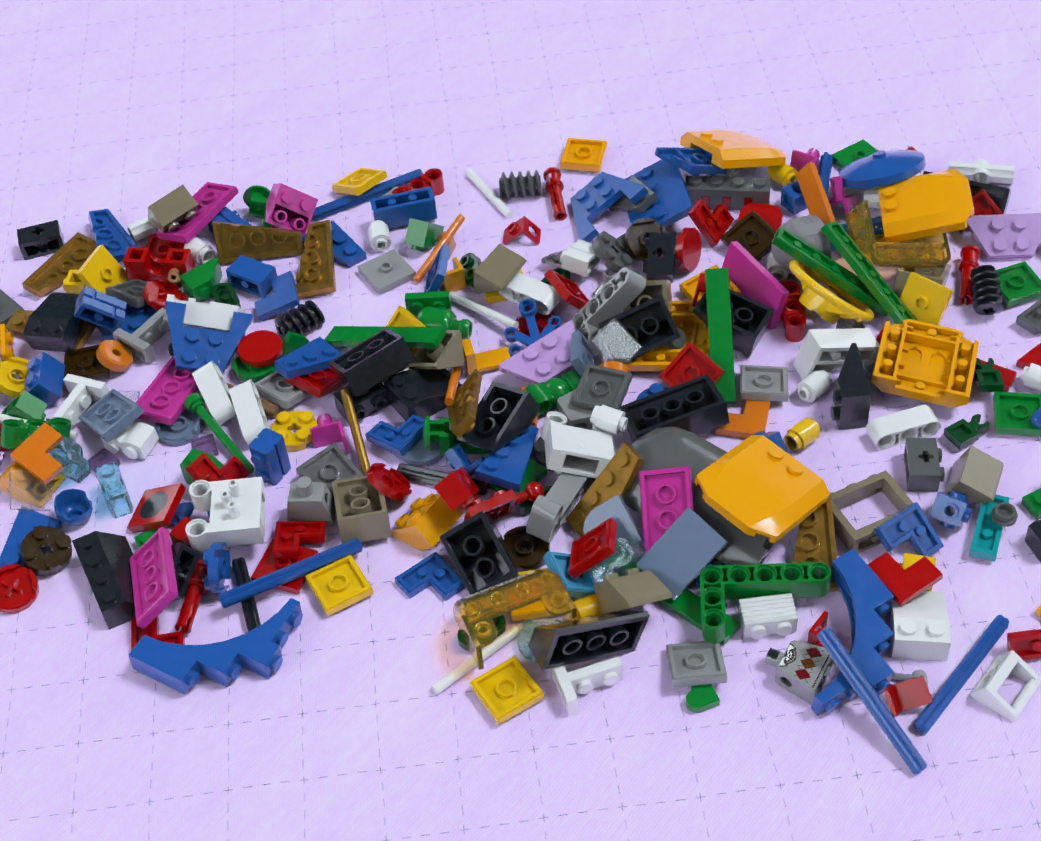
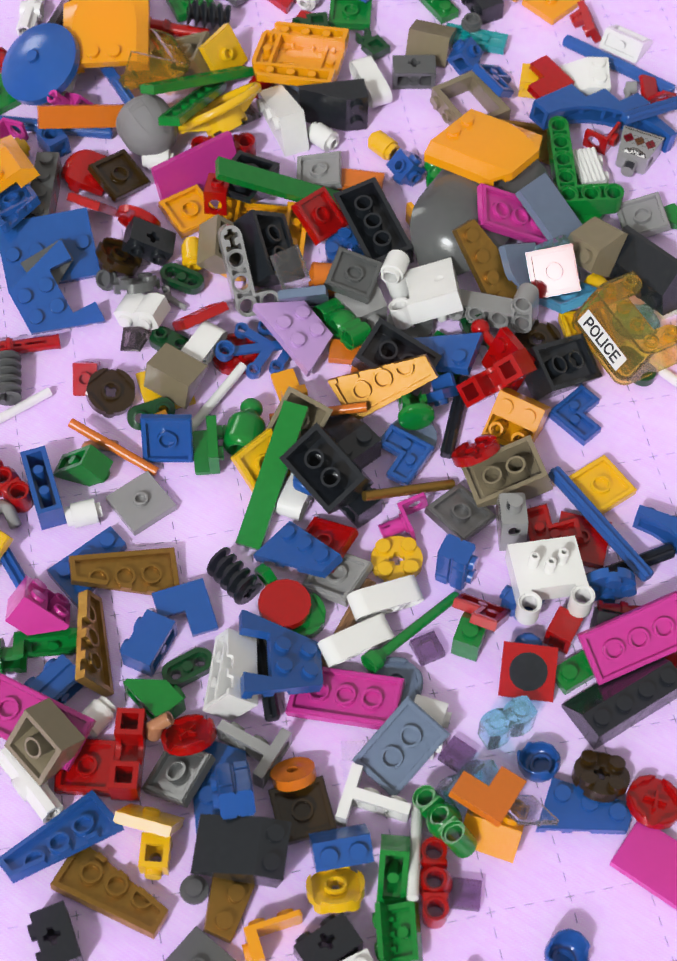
camera: 100 degrees left, 10 degrees up
(492, 235) = (109, 405): none -> dark brown plate

